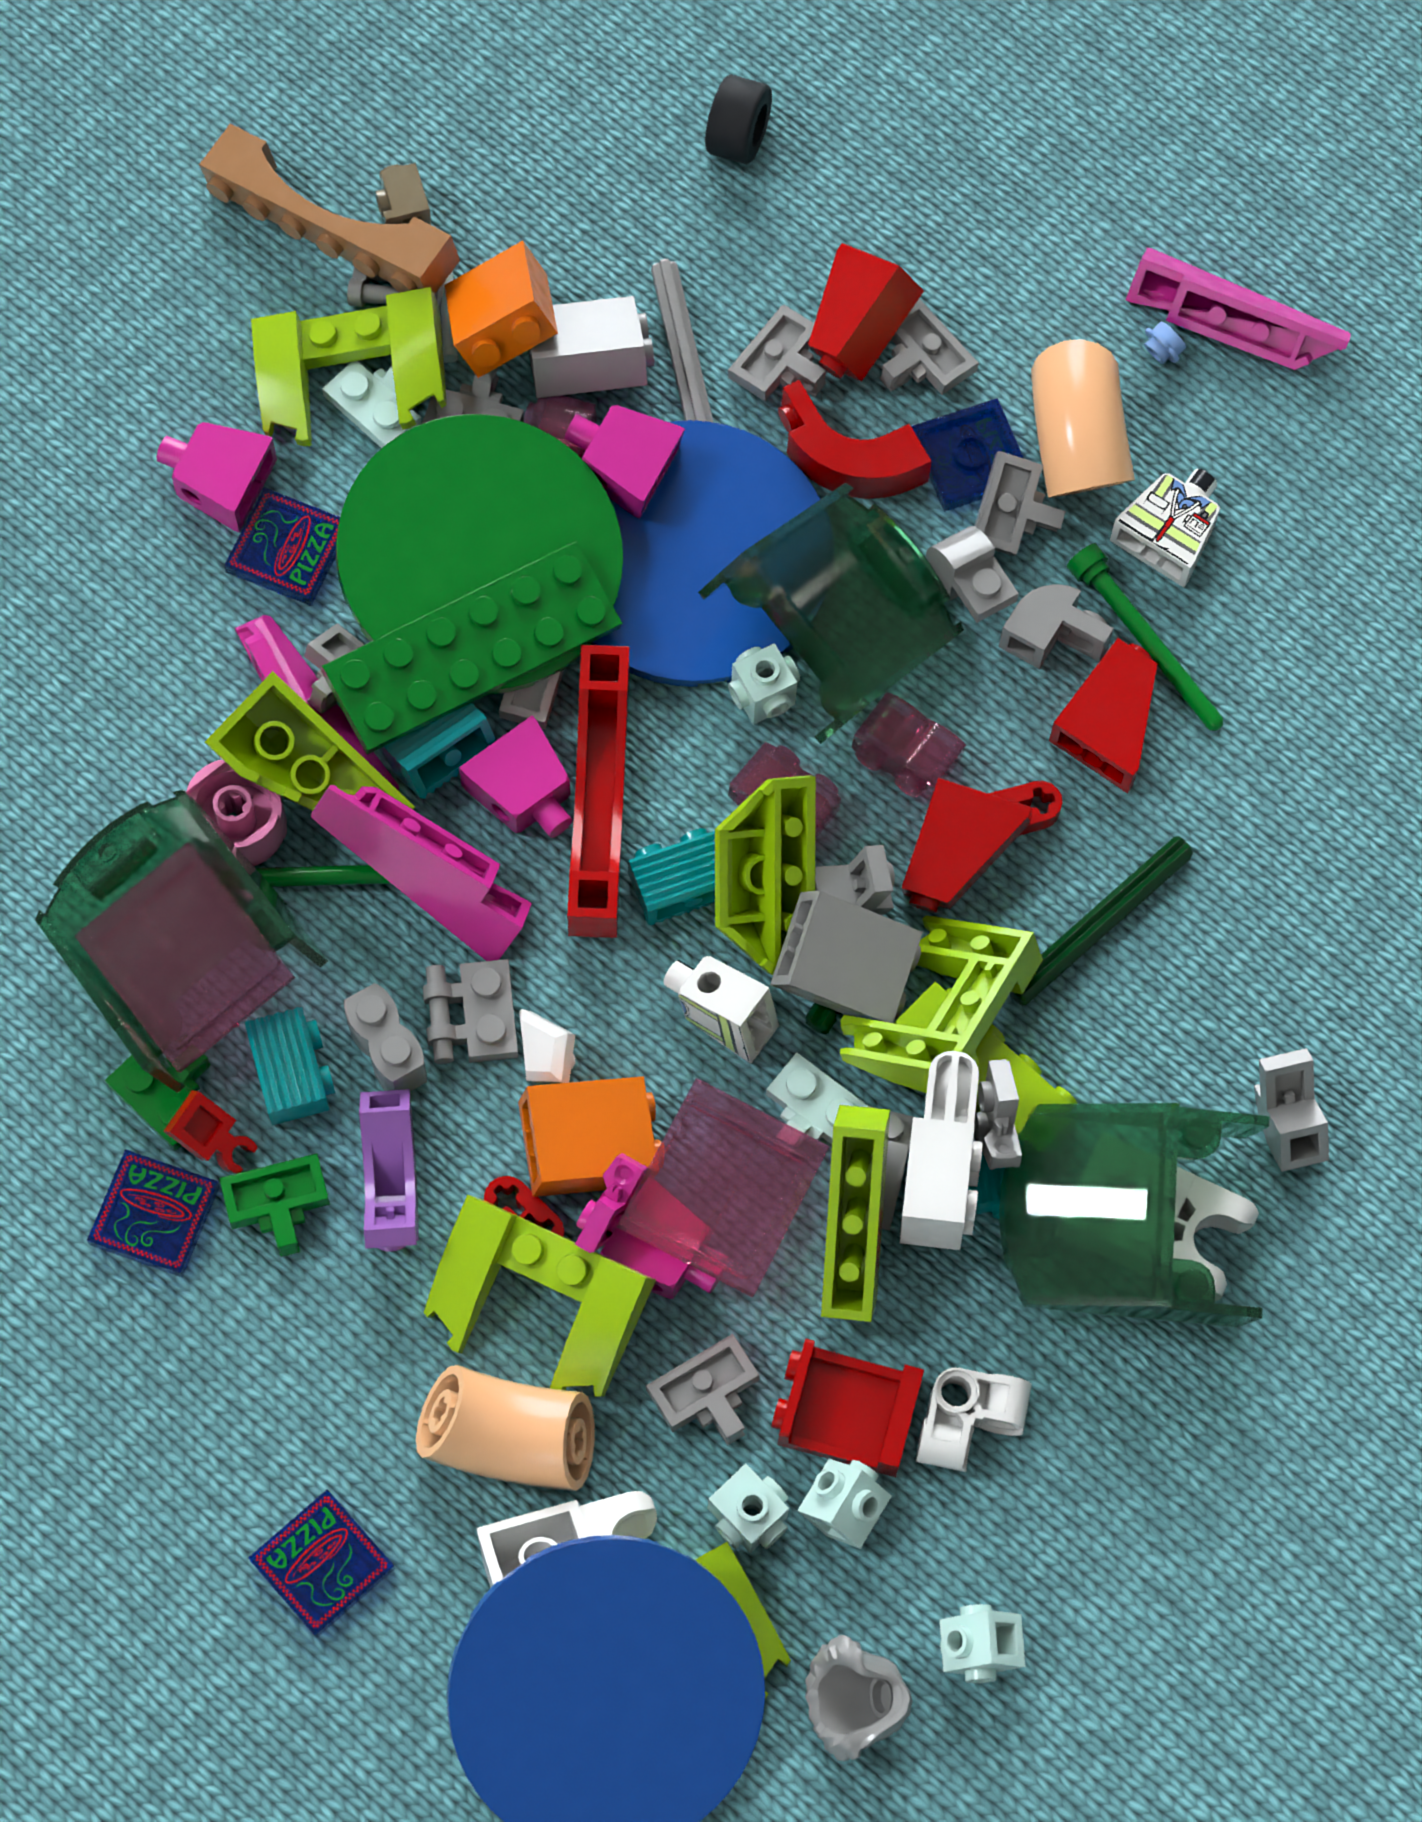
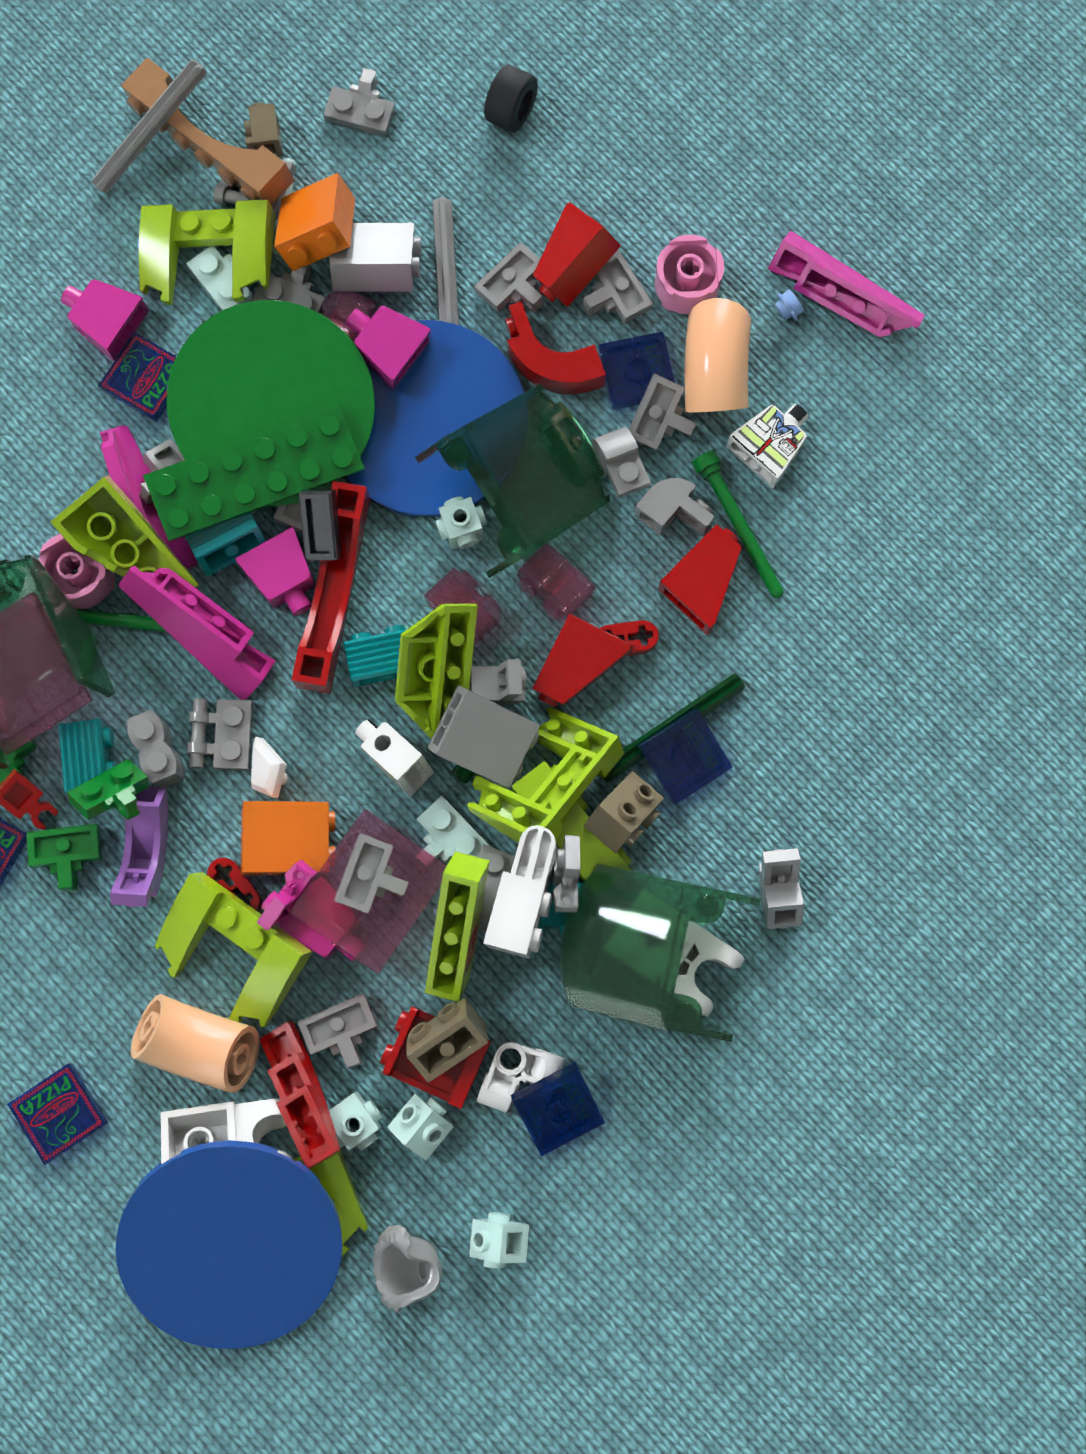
camera: 10 degrees right, 10 degrees up
(249, 212) = (149, 125): none -> light grey axle
(344, 1092) = (110, 790): none -> green hinge
(530, 155) = (360, 106): none -> light grey hinge
(573, 705) = (320, 524): none -> black tile
(669, 1477) = (300, 1095): none -> red slope
(720, 1162) = (368, 875): none -> light grey hinge
(863, 1371) = (446, 1039): none -> dark tan brick
(1020, 317) = (688, 256): none -> bright pink brick
(1033, 1452) = (557, 1109): none -> clear blue tile
(1059, 1036) = (623, 812): none -> dark tan brick
(1126, 954) = (685, 756): none -> clear blue tile

